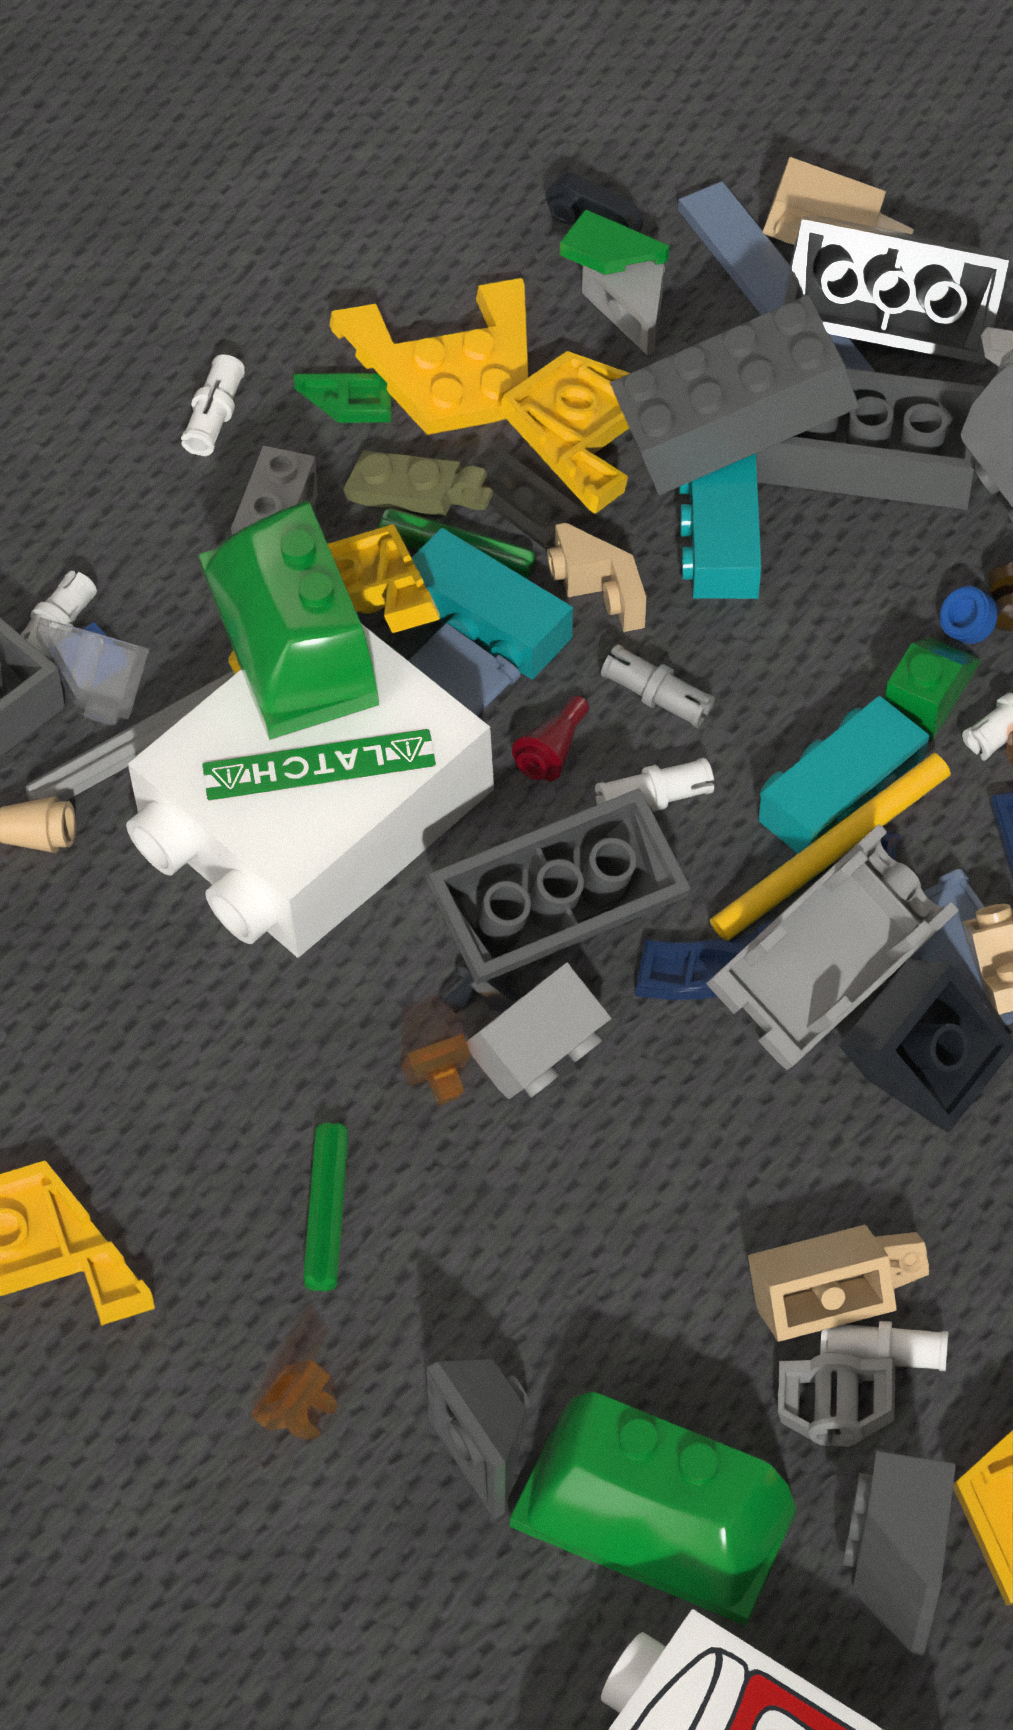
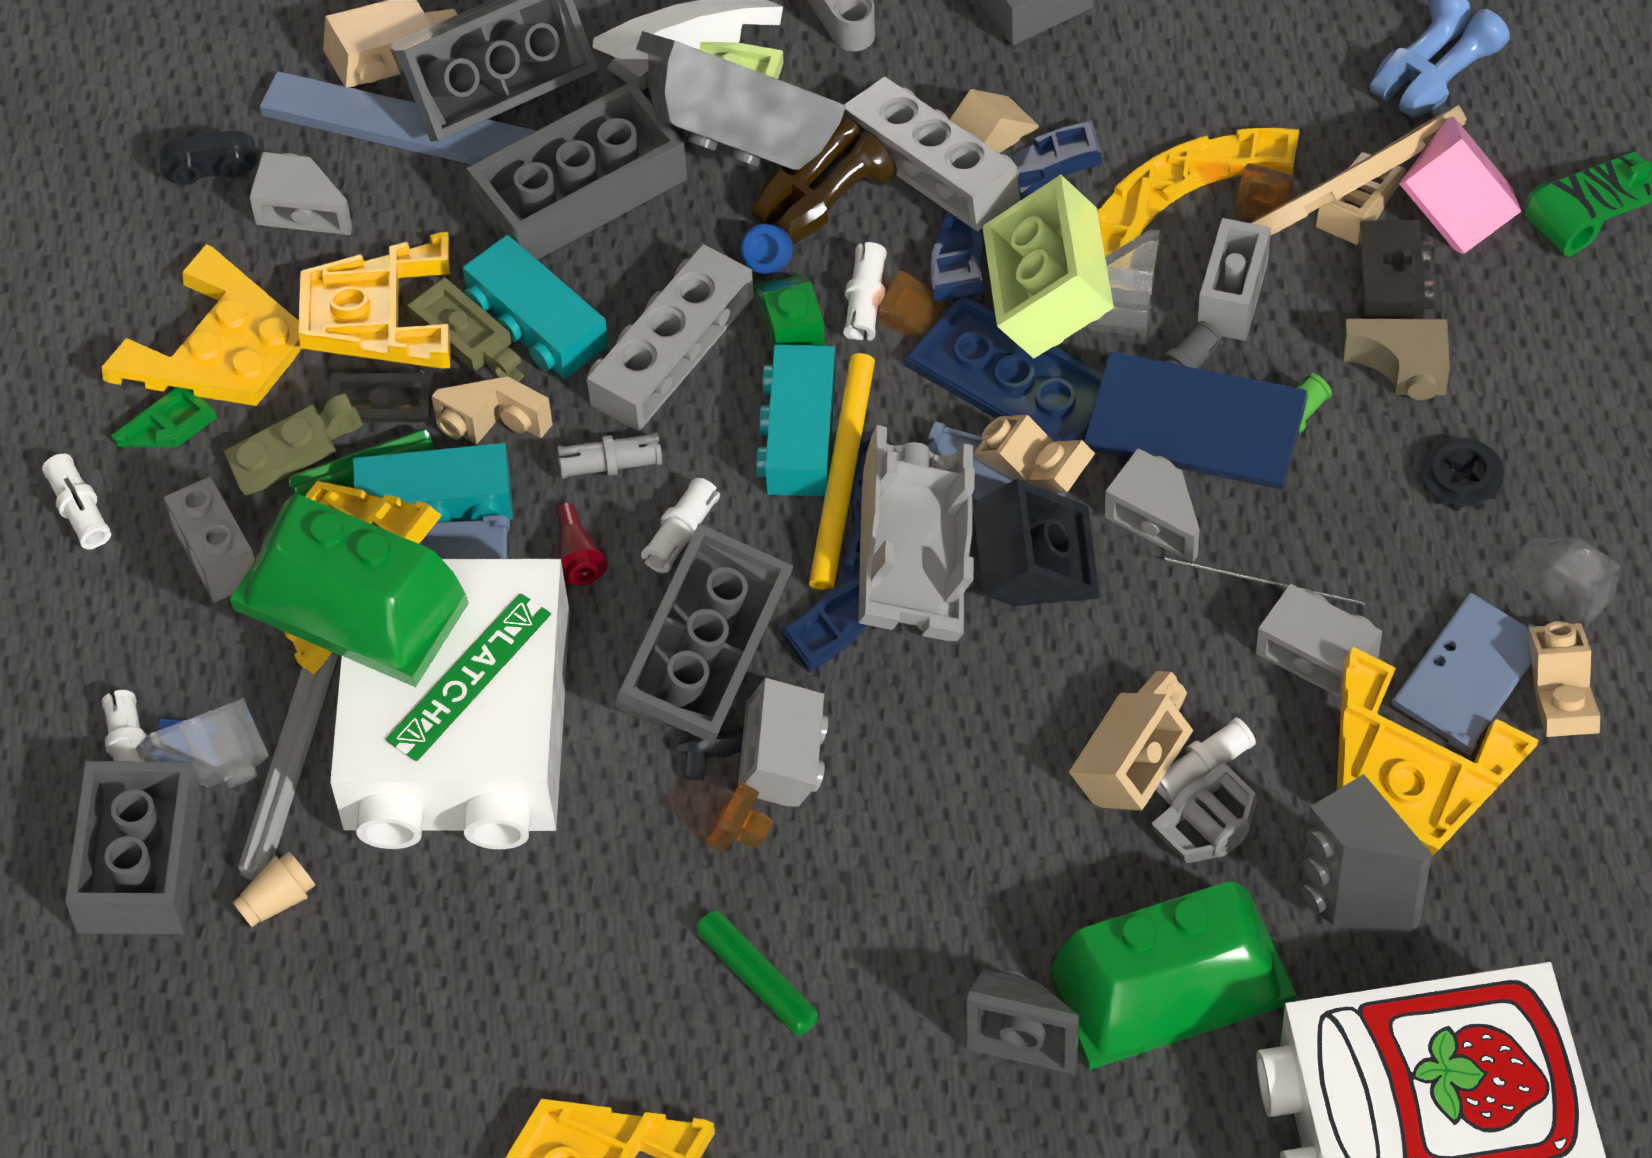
camera: 40 degrees left, 0 degrees up
(290, 1398) = (874, 1107): clear orange tile -> none
(609, 245) = (262, 171): green tile -> none
(645, 511) = (473, 333): none -> olive plate
(734, 394) = (475, 210): dark grey brick -> none
(808, 626) = (669, 337): none -> light grey brick

